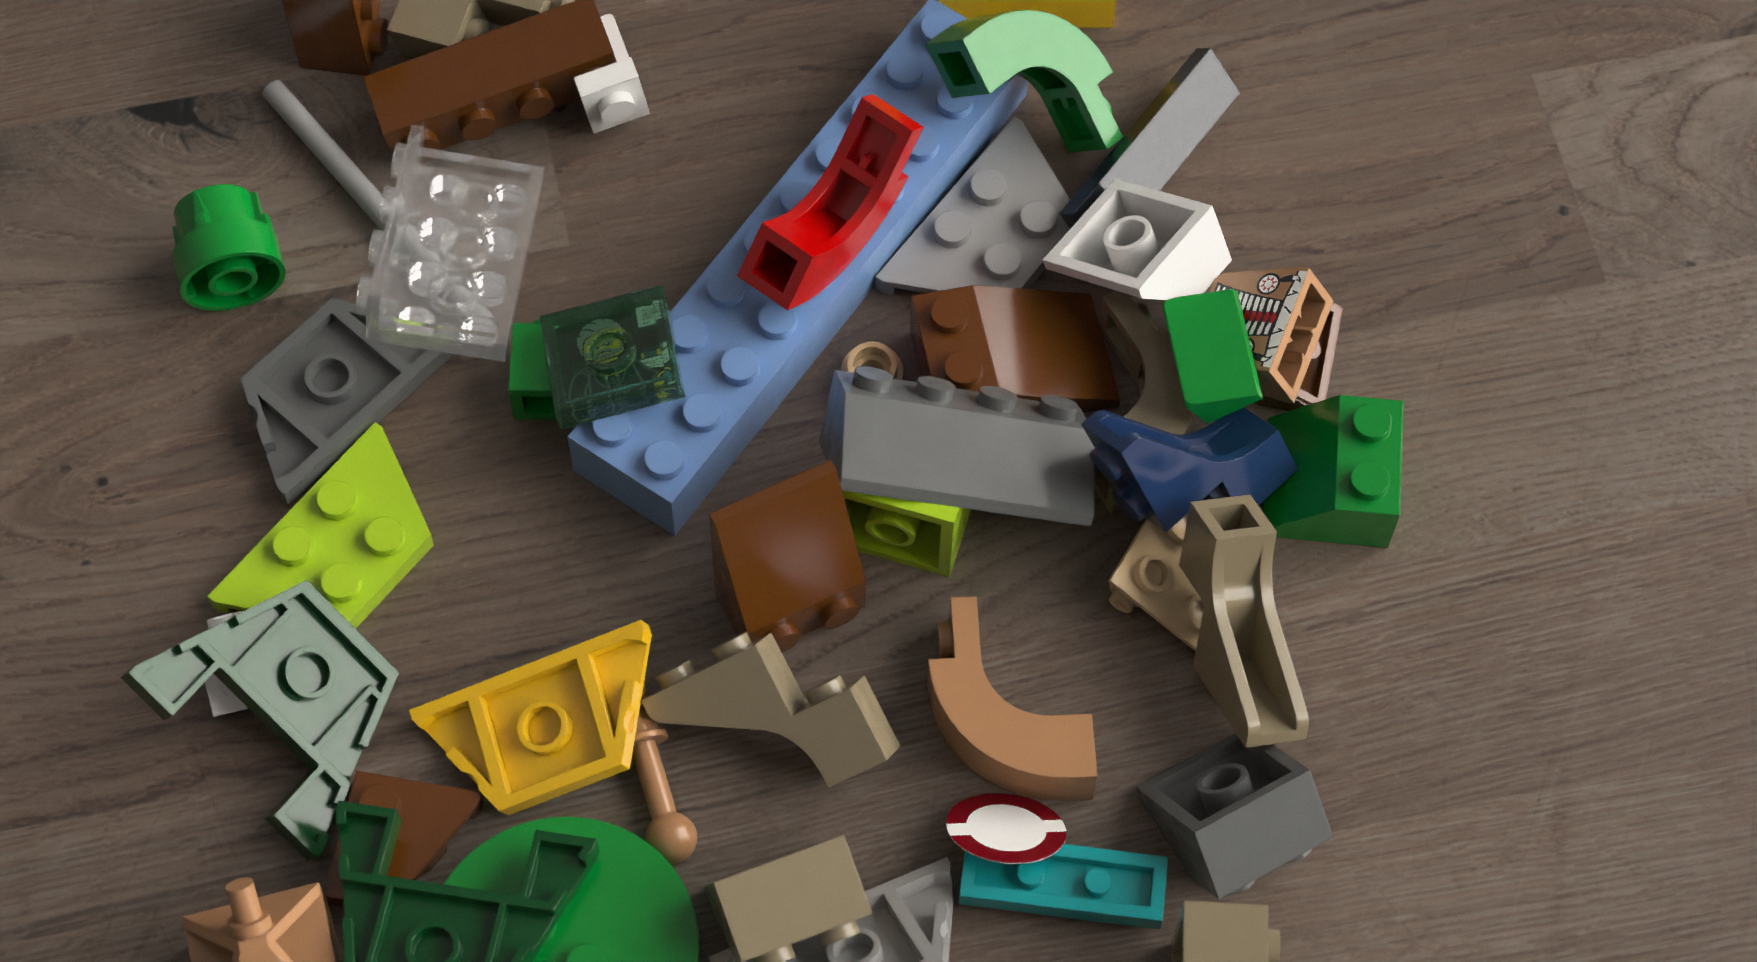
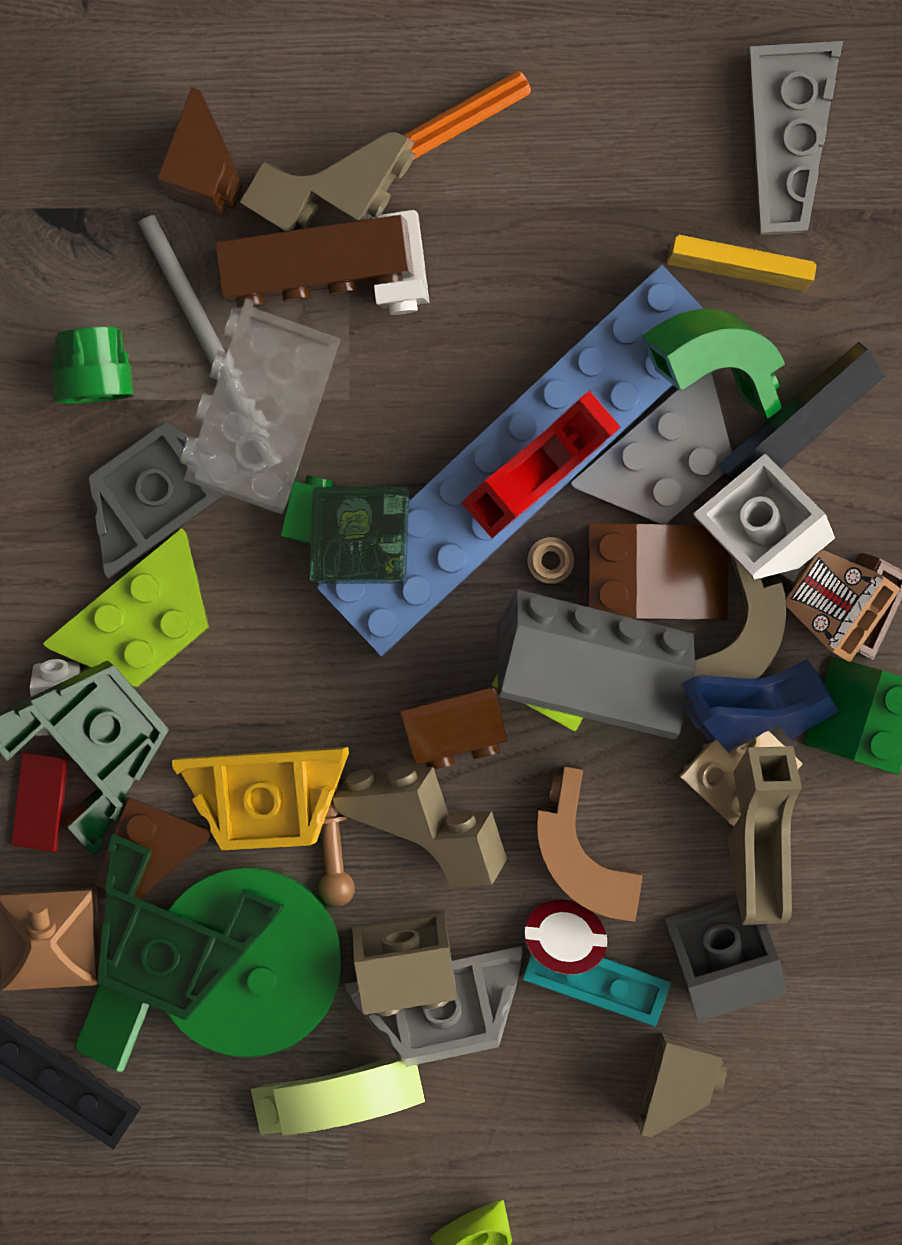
camera: 15 degrees right, 25 degrees up
(233, 803) = (40, 802): none -> red slope
(1212, 353) = (796, 623): green slope -> none

